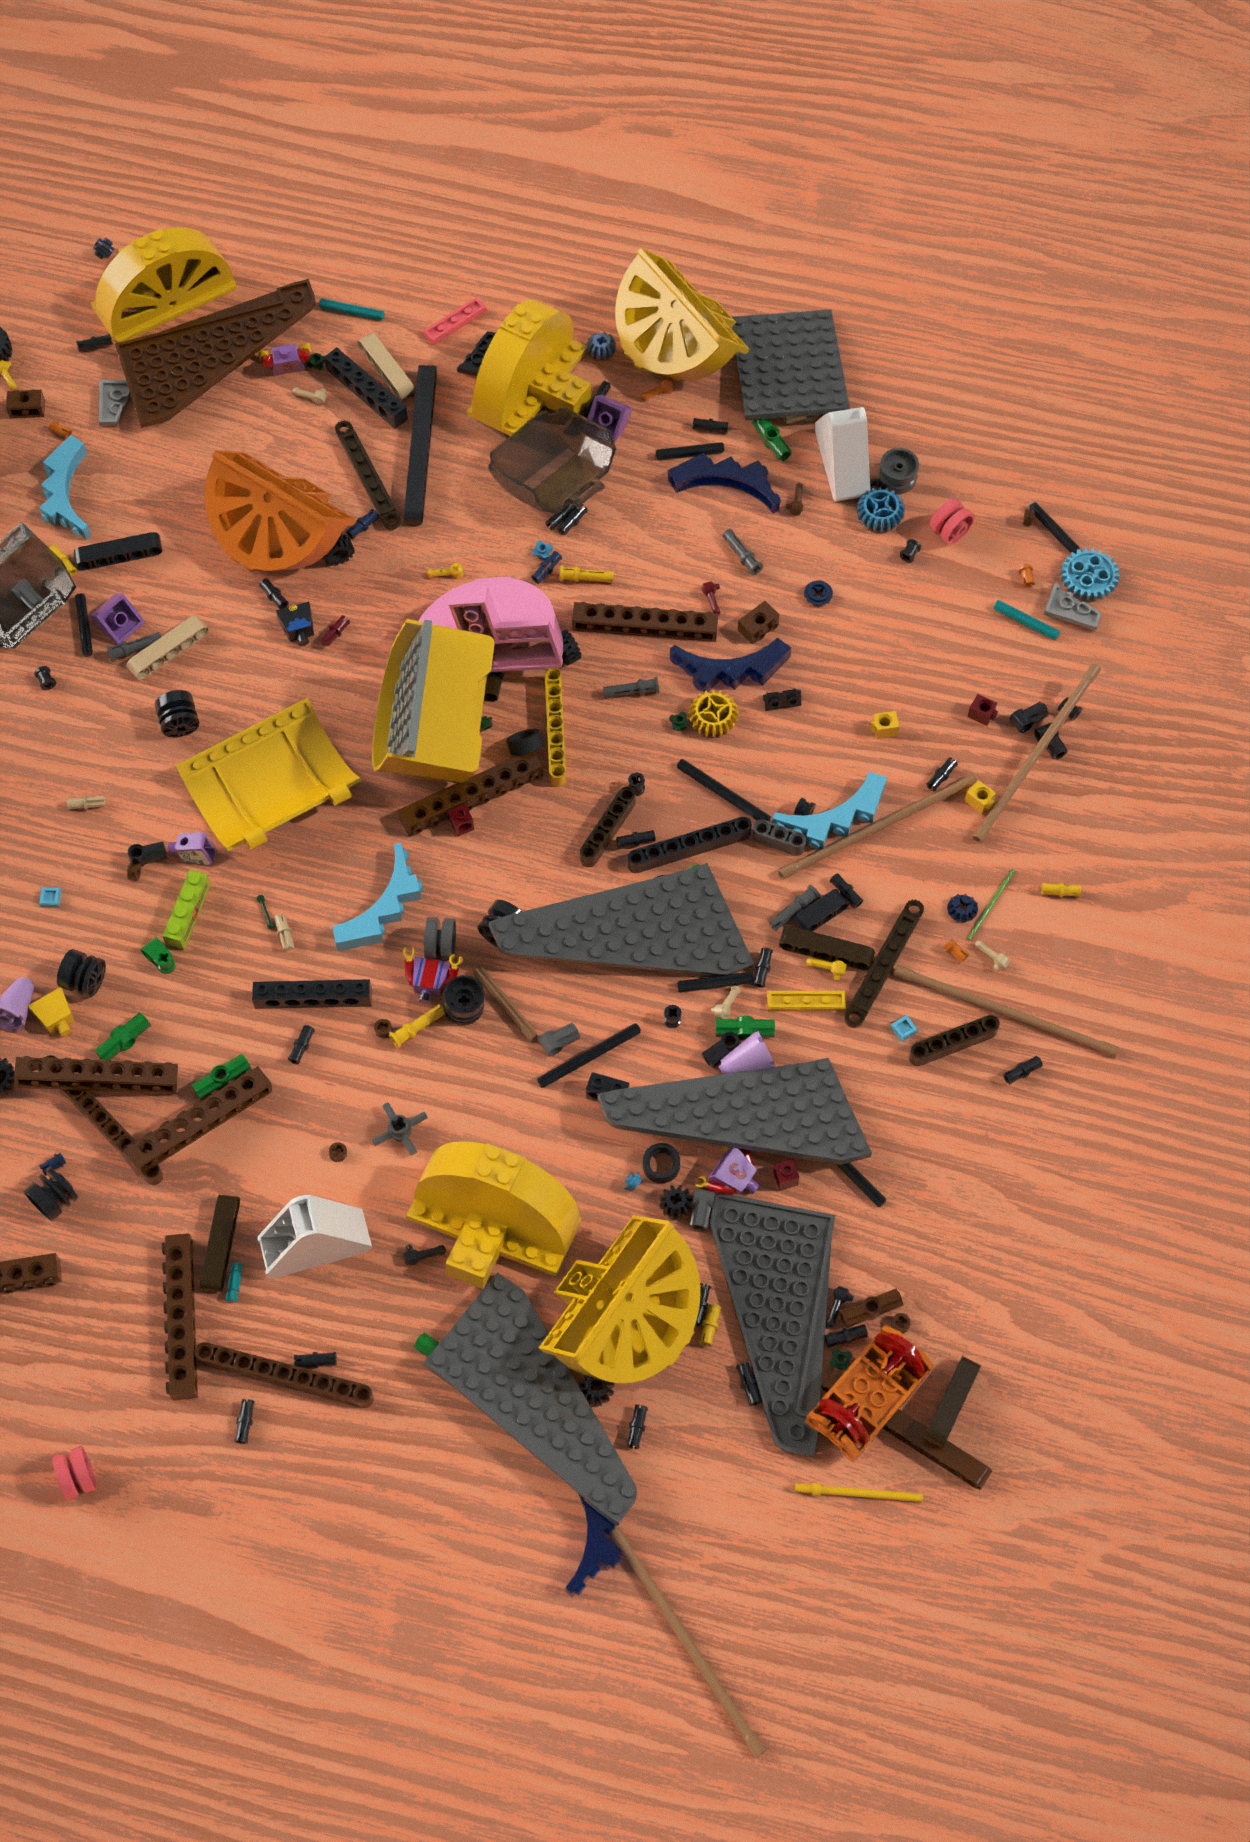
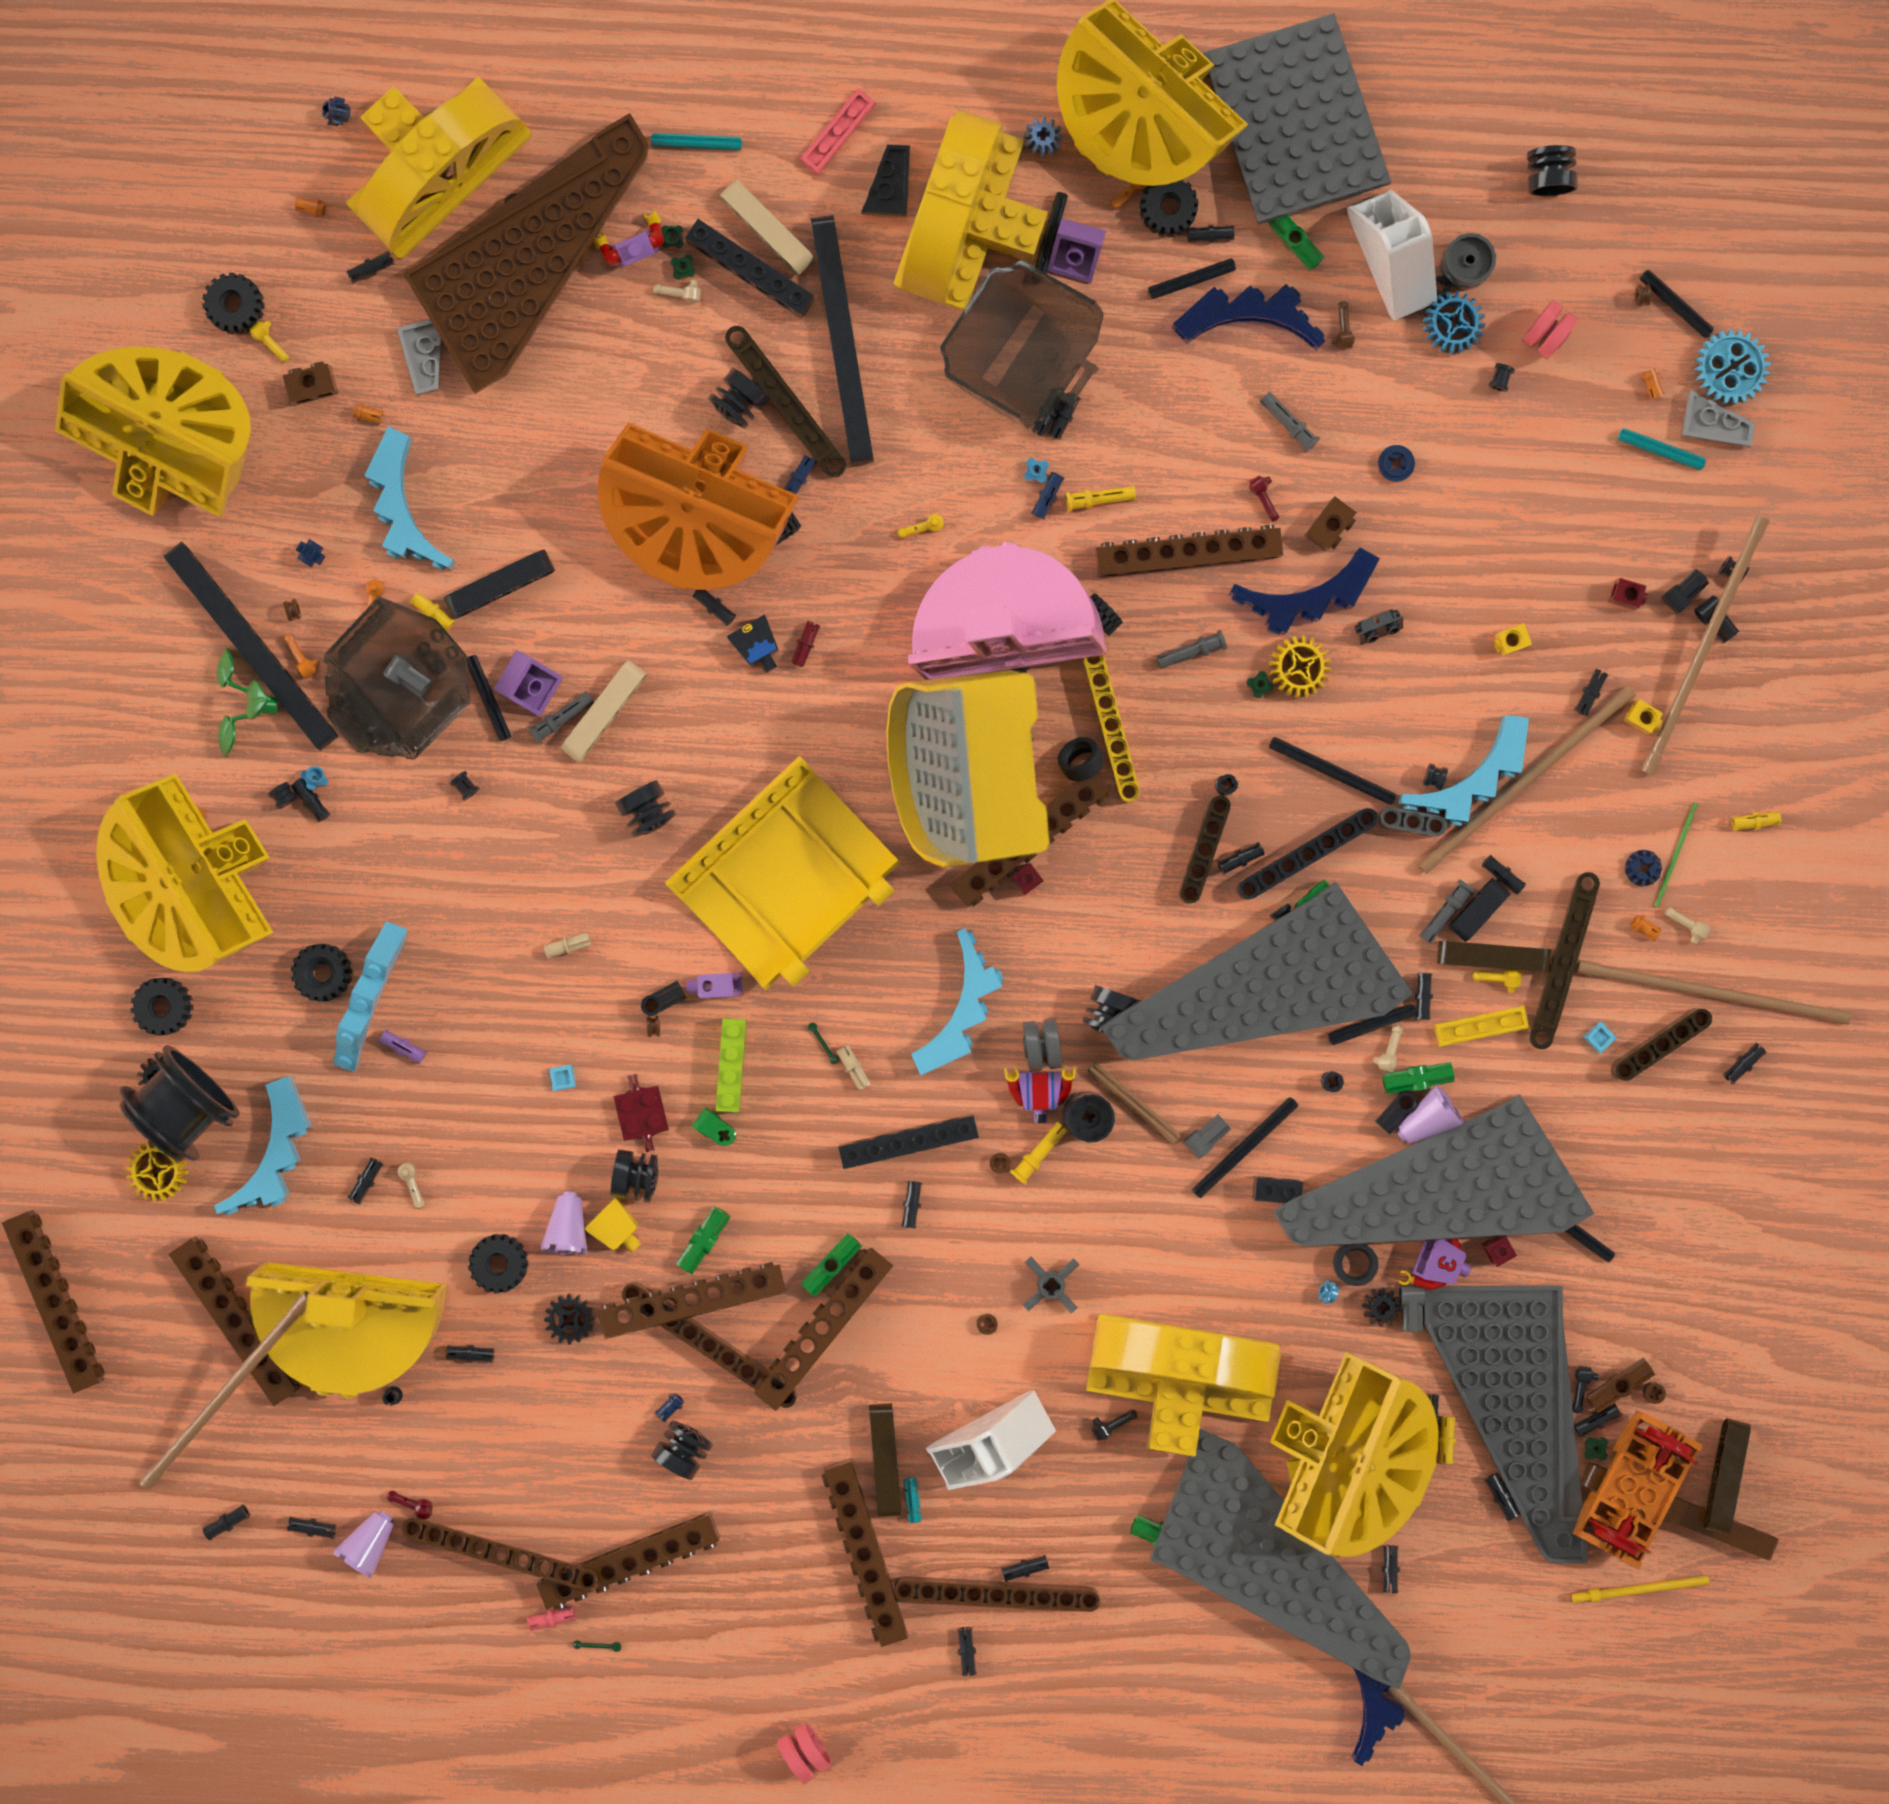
camera: 15 degrees left, 25 degrees up
(70, 302) = (310, 206): none -> orange pin
(103, 933) = (641, 1113): none -> dark red plate
(318, 385) = (687, 271): none -> dark green plate
(332, 461) = (738, 398): none -> black wheel
(683, 412) = (1169, 223): none -> black tyre
(972, 424) = (1552, 170): none -> black wheel

